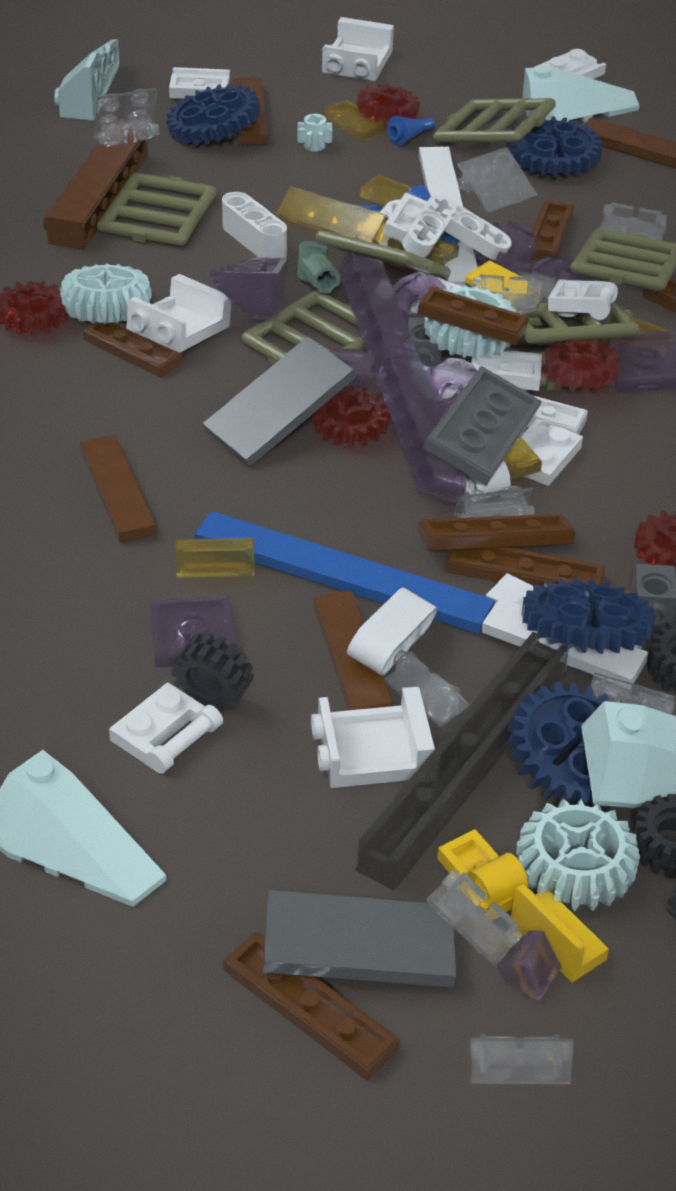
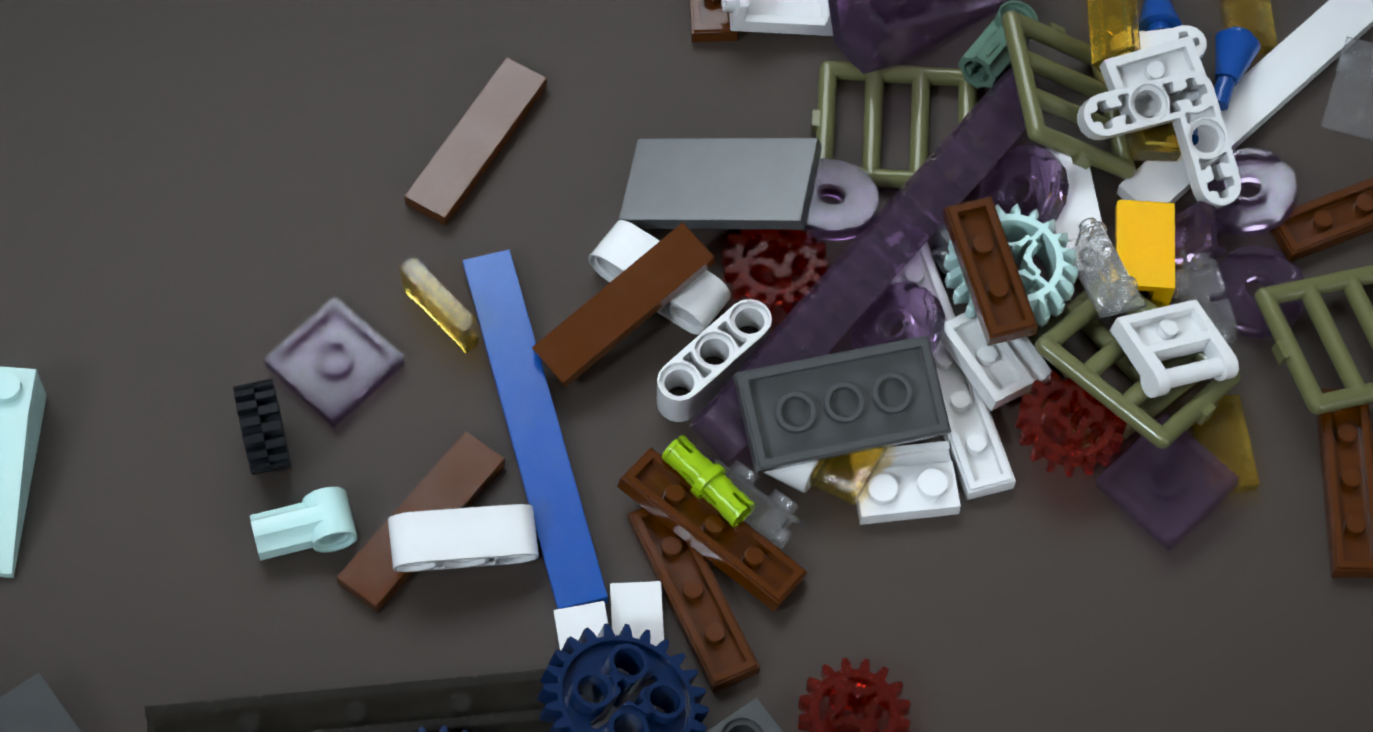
camera: 50 degrees right, 20 degrees up
(158, 719) = (185, 423): white plate -> none
(297, 703) = (318, 523): none -> light aqua piece
(305, 463) = (691, 308): none -> white beam
(315, 476) = (624, 304): none -> reddish brown tile
(372, 742) = (309, 622): white panel -> none
(386, 472) = (703, 379): none -> white beam
(439, 698) = (423, 623): clear hinge -> none
(471, 506) = (708, 480): none -> lime pin

